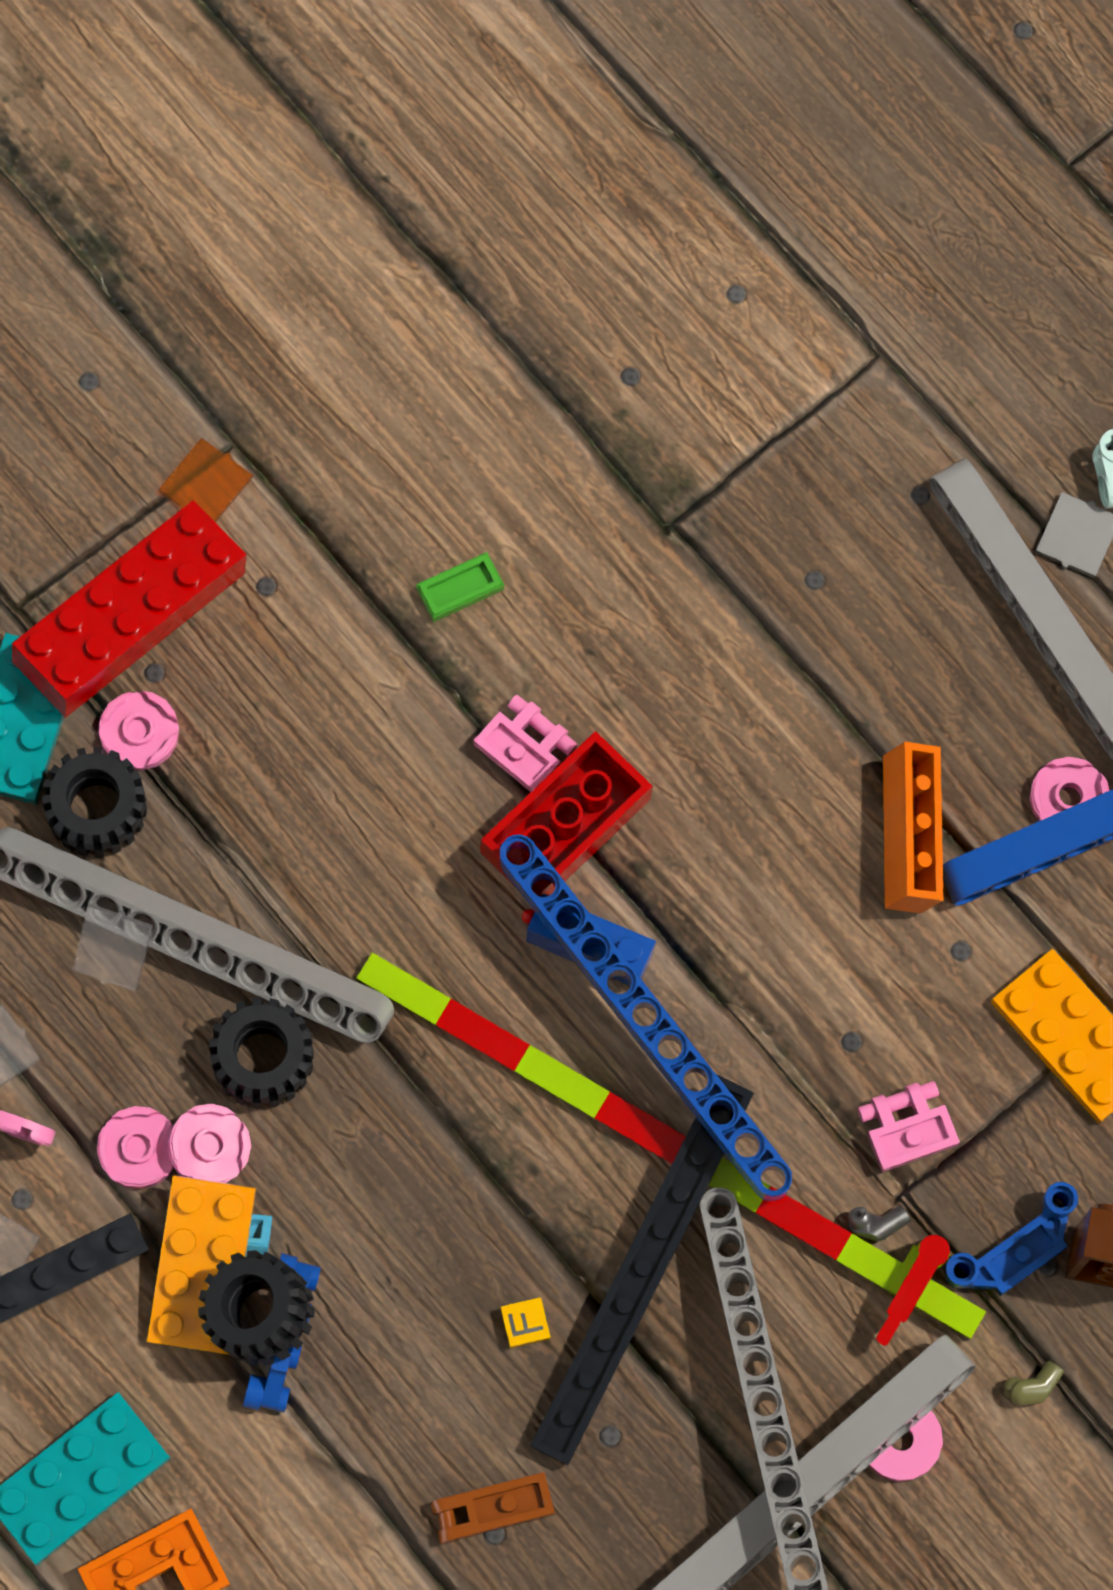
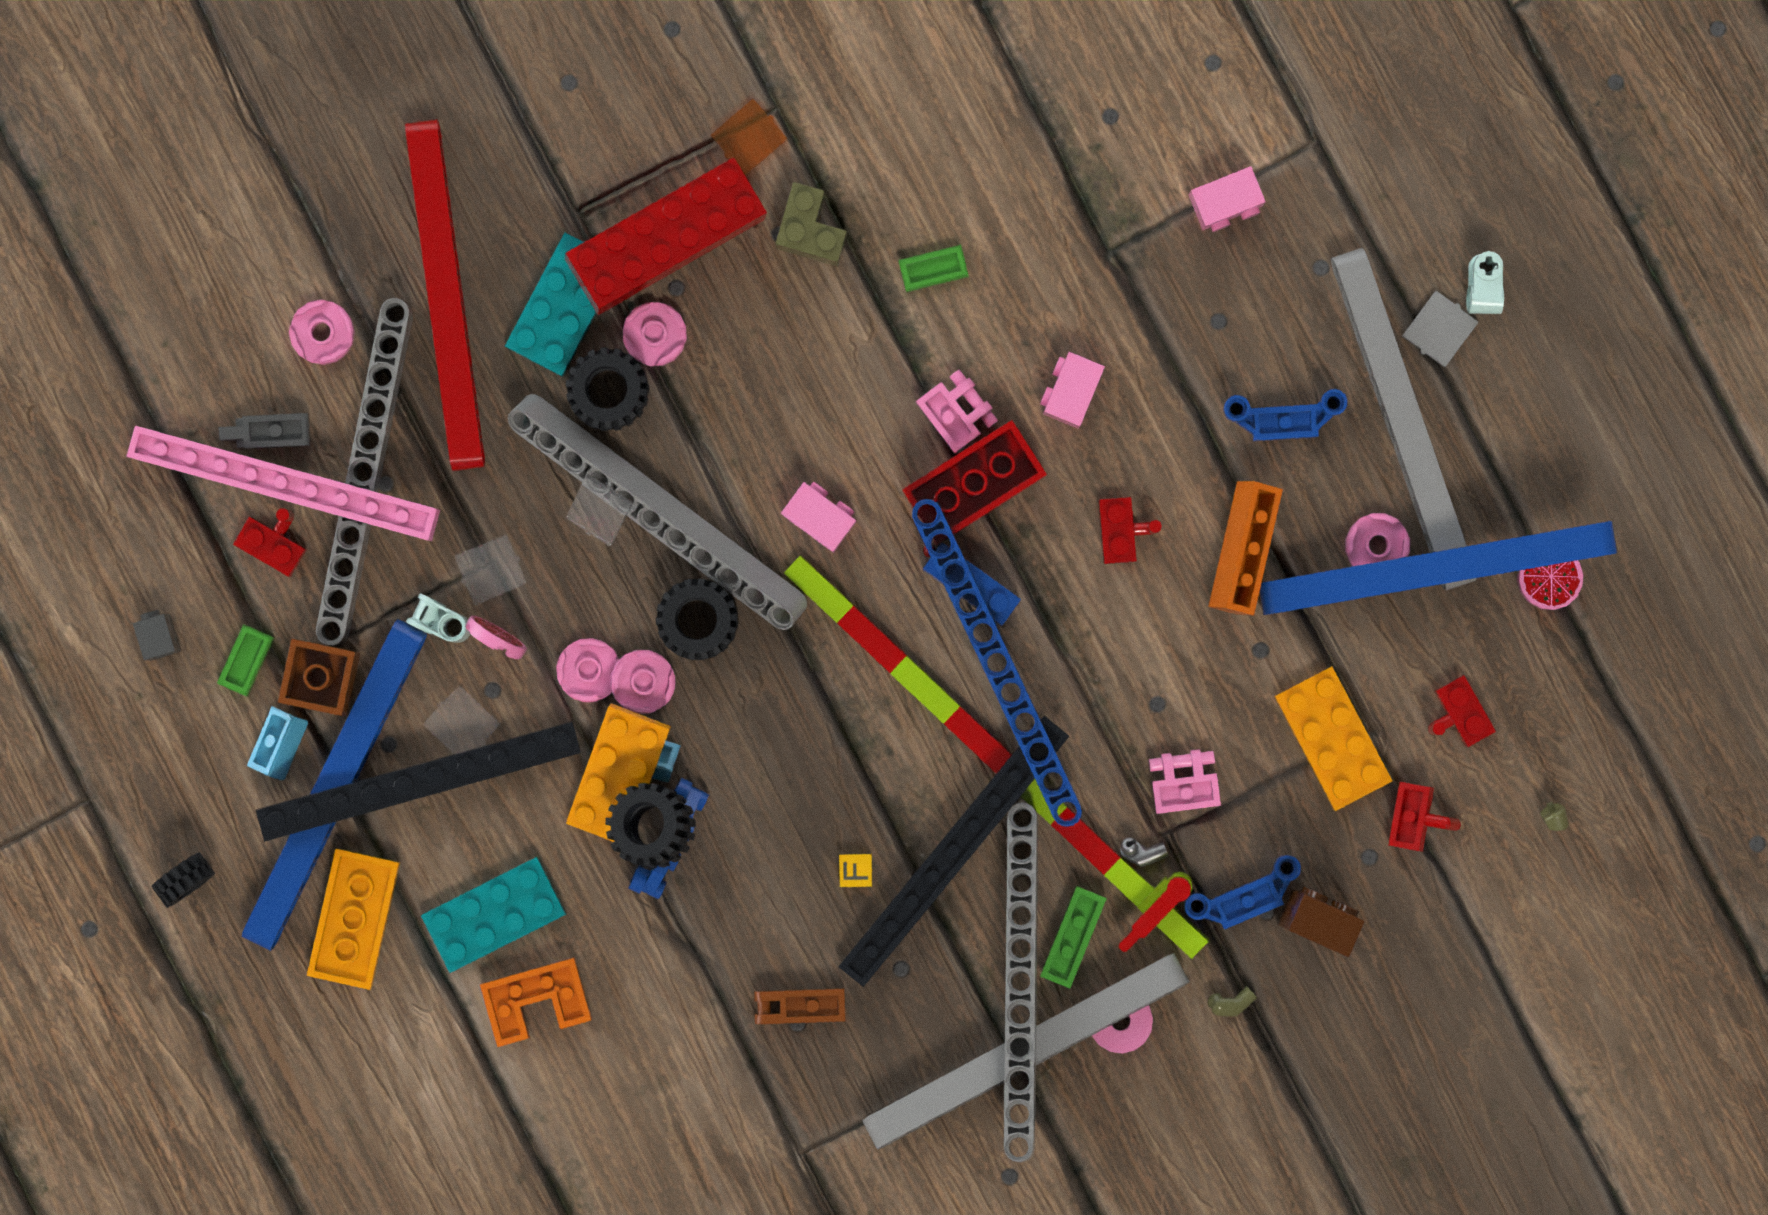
camera: 15 degrees right, 15 degrees up
(297, 576) = (801, 231): none -> olive brick
(386, 900) = (819, 516): none -> bright pink brick
(660, 689) = (1072, 390): none -> bright pink brick
(755, 843) = (1119, 531): none -> red plate
(790, 436) = (1227, 199): none -> bright pink brick
(816, 1345) = (1073, 937): none -> bright green plate
(922, 674) = (1285, 421): none -> blue plate

